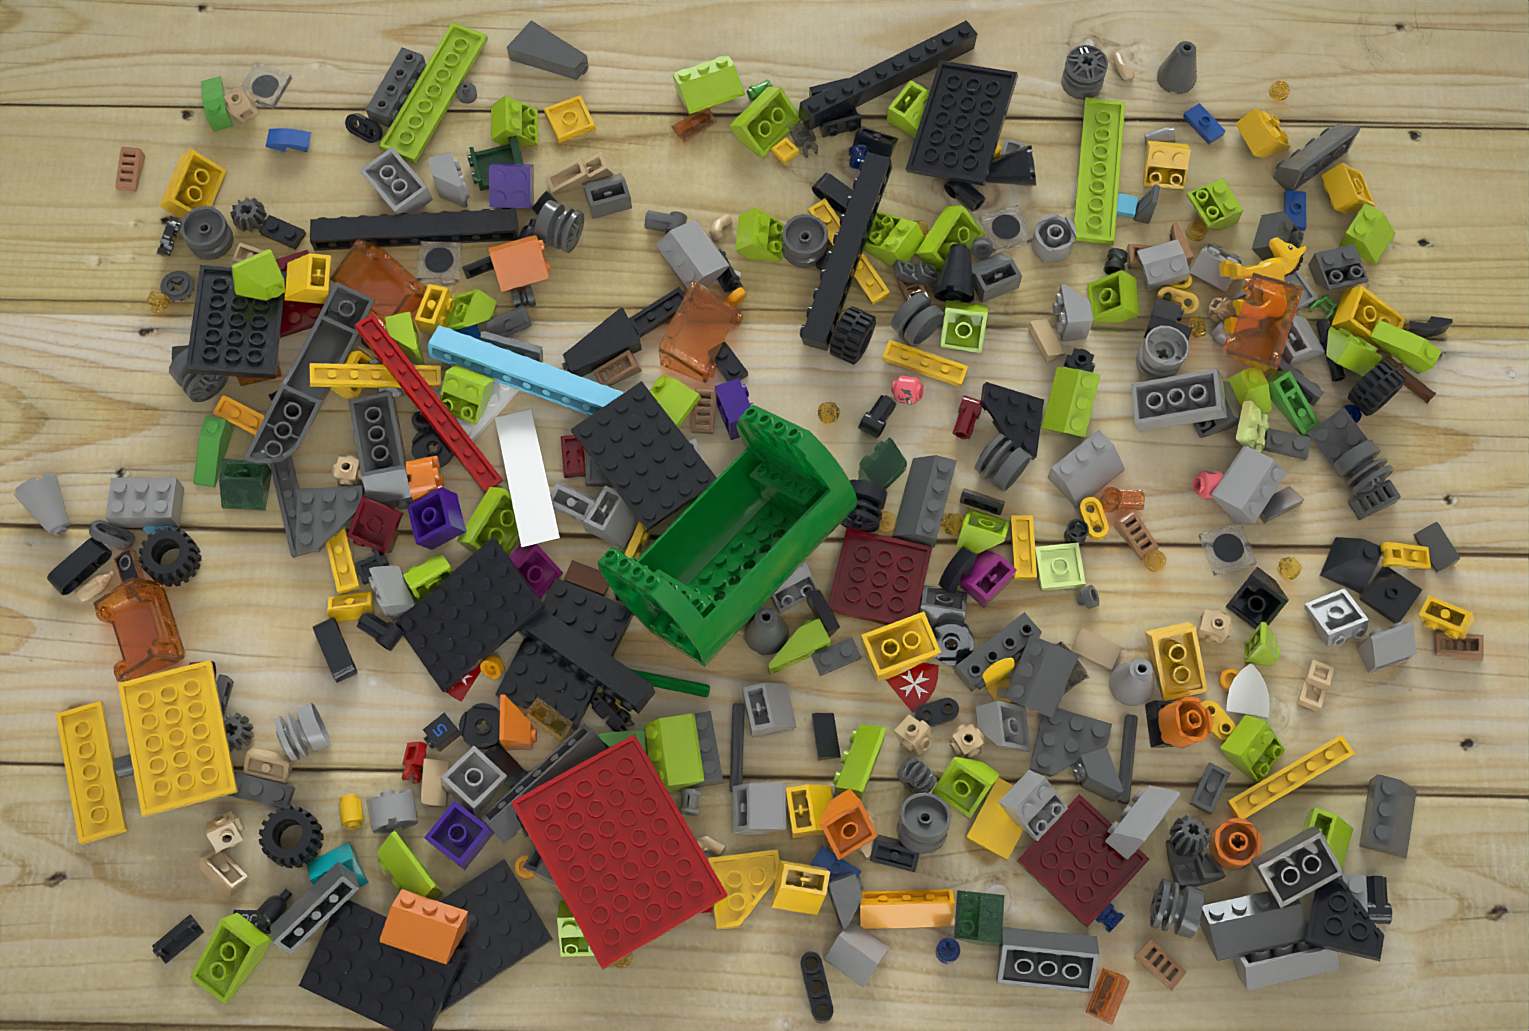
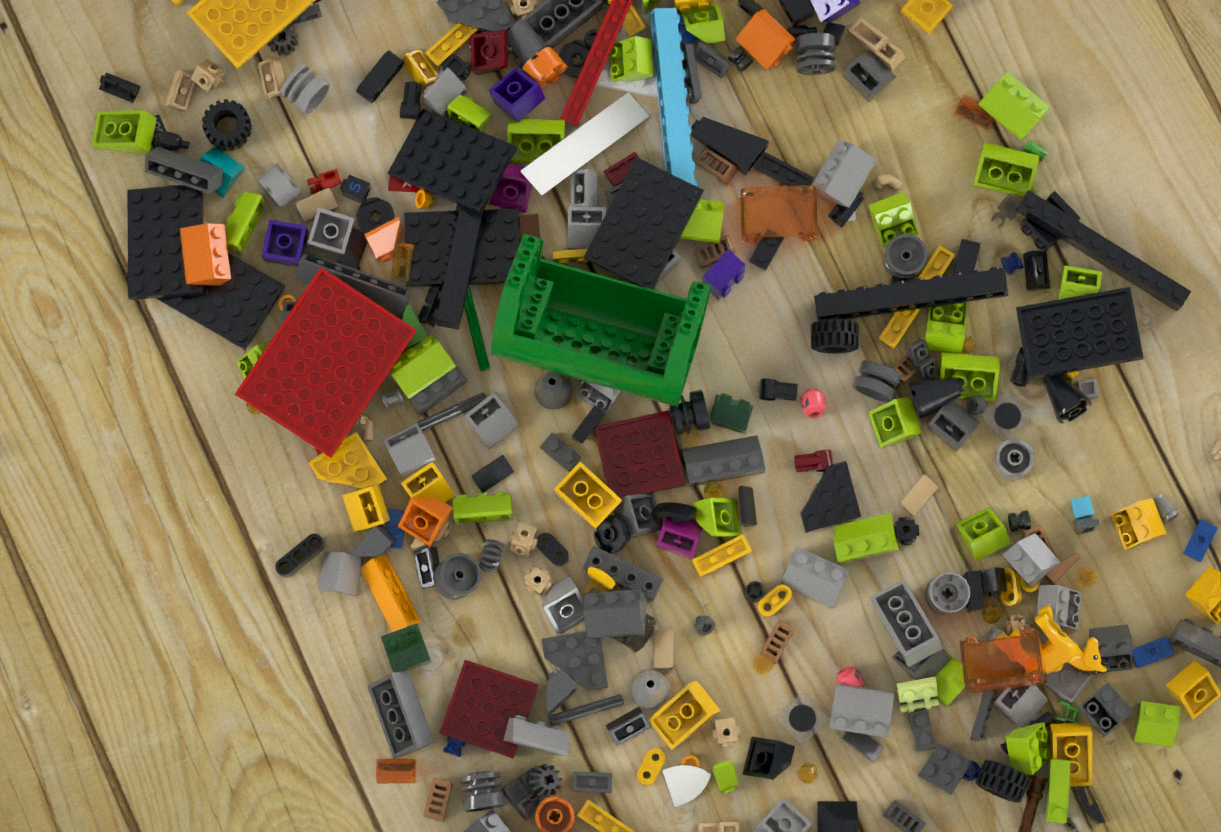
camera: 65 degrees right, 10 degrees up
(263, 791) = (251, 85): dark grey plate -> none
(351, 811) = (266, 157): yellow brick -> none
(663, 221) = (867, 138): dark grey piece -> none
(737, 296) = (828, 227): light orange tile -> none
(785, 151) = (988, 200): yellow tile -> none
(805, 641) = (554, 421): lime slope -> none
(828, 412) = (761, 350): clear yellow tile -> none
(915, 684) = (568, 524): red sticker -> none
(925, 363) = (845, 406): yellow plate -> none
(943, 955) = (374, 641): clear blue wheel -> none
(966, 784) = (505, 596): lime slope -> none
(993, 826) = (492, 635): yellow tile -> none
(998, 459) = (784, 501): dark grey wheel -> none
(1033, 804) = (510, 652): light grey slope -> none
(1059, 566) = (719, 591): yellowish green plate -> none
(1073, 314) = (945, 506): light grey slope -> none
(1084, 72) = (1182, 417): dark grey wheel -> none
(1099, 171) = (1104, 469): lime plate -> none
(1122, 500) = (802, 618): clear orange piece -> none
(1185, 722) = (626, 731): orange brick -> none
(1216, 205) = (1115, 580): lime slope -> none
(1253, 748) = (640, 802): lime slope -> none
(1291, 401) = (959, 719): bright green slope -> none
(1364, 469) = (924, 797): dark grey wheel -> none

